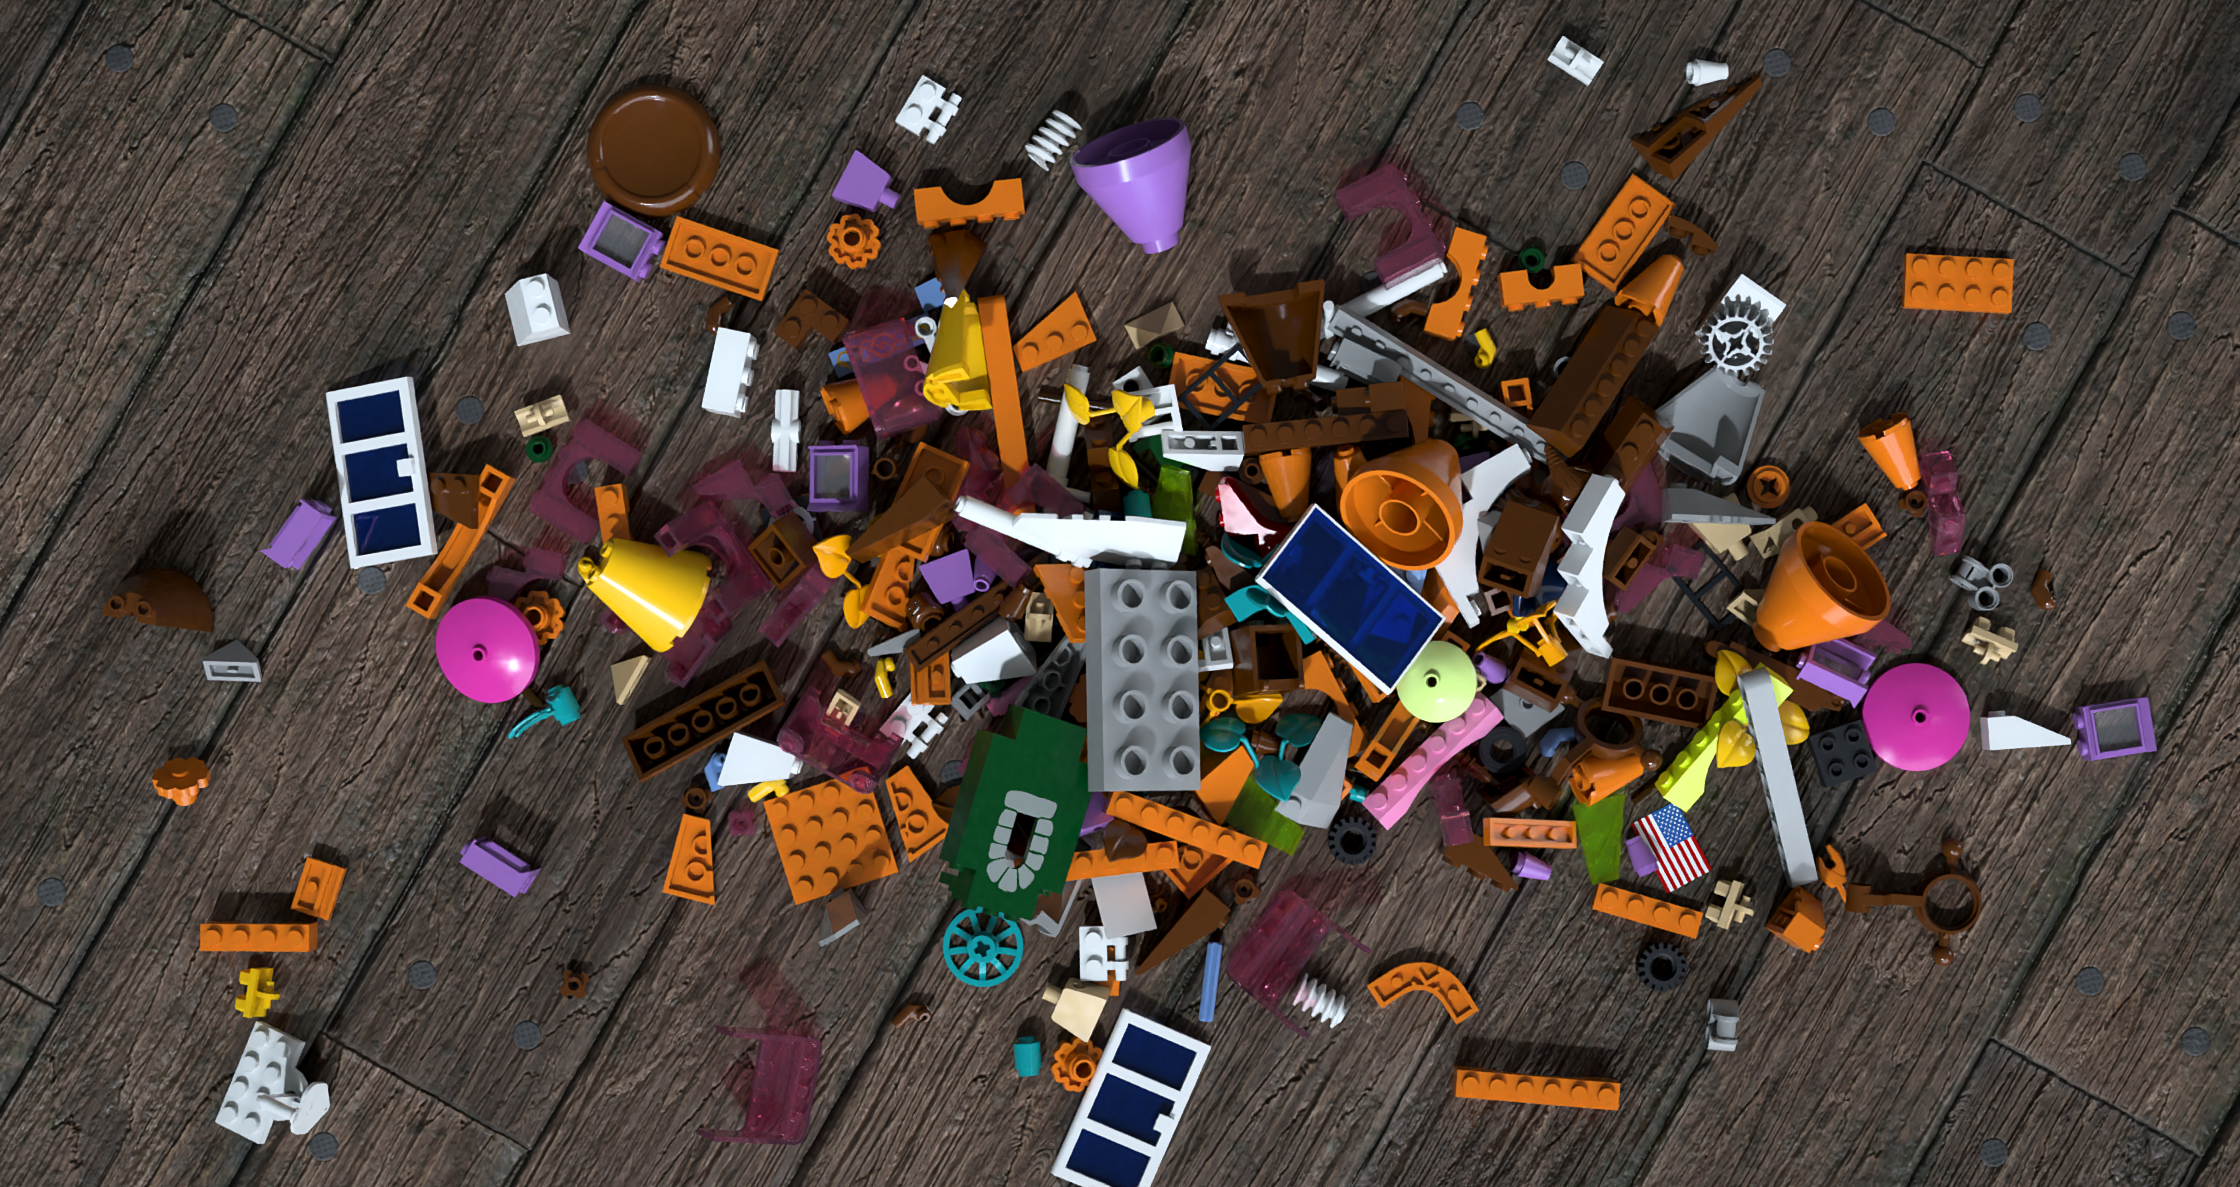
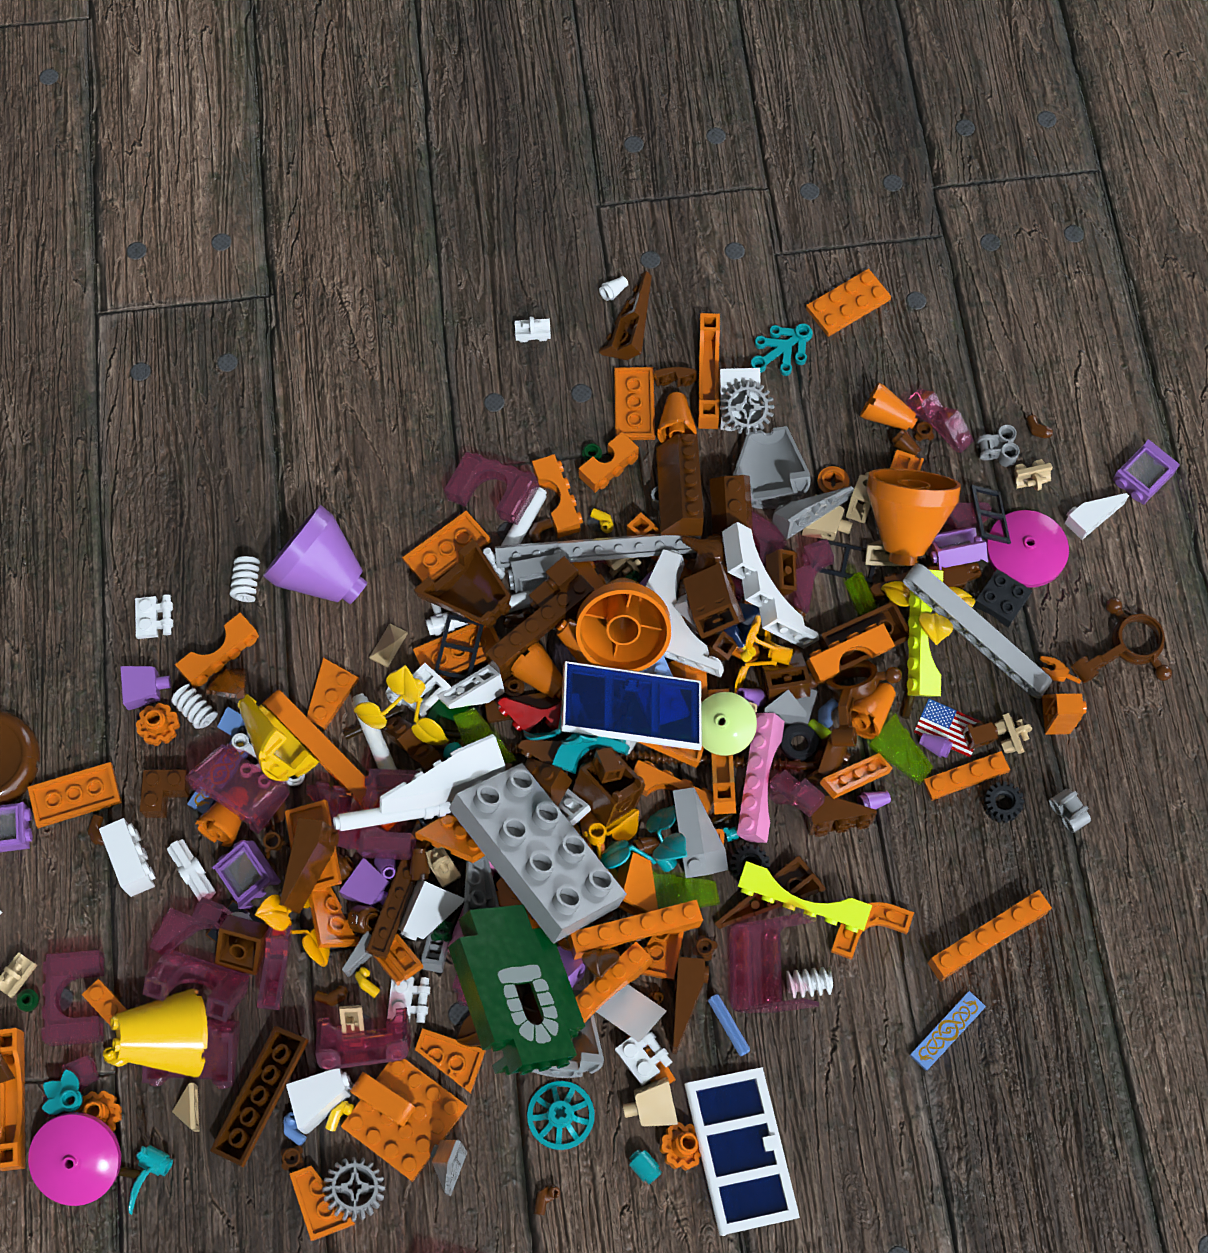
camera: 30 degrees left, 20 degrees down
(513, 574) = (61, 1092): none -> teal plate
(727, 883) = (344, 1189): none -> light grey gear
(735, 819) = (336, 1145): clear pink plate -> none
(819, 810) = (382, 1099): none -> orange beam
(902, 251) = (192, 708): none -> white piece
(1155, 355) = (401, 657): dark green plate -> none
(1278, 644) = (607, 765): none -> reddish brown brick
(1289, 259) = (440, 551): none -> orange plate
(1371, 888) = (793, 877): none -> reddish brown wedge
(1410, 963) = (847, 911): none -> neon yellow arch
(1420, 1145) = (947, 1031): none -> medium blue tile
(1515, 706) = (786, 705): none -> light grey slope
(1534, 756) = (820, 729): none -> lime arm
(1591, 695) = (872, 642): none -> orange arch
(1693, 639) = (860, 594): none -> clear neon green tile
(1695, 881) = (980, 734): none -> reddish brown brick
(1732, 257) = (709, 371): none -> orange arch
(1841, 286) = (783, 346): none -> teal plant
(1882, 502) = (906, 443): none -> reddish brown cone
(1891, 644) = (978, 512): none -> black window

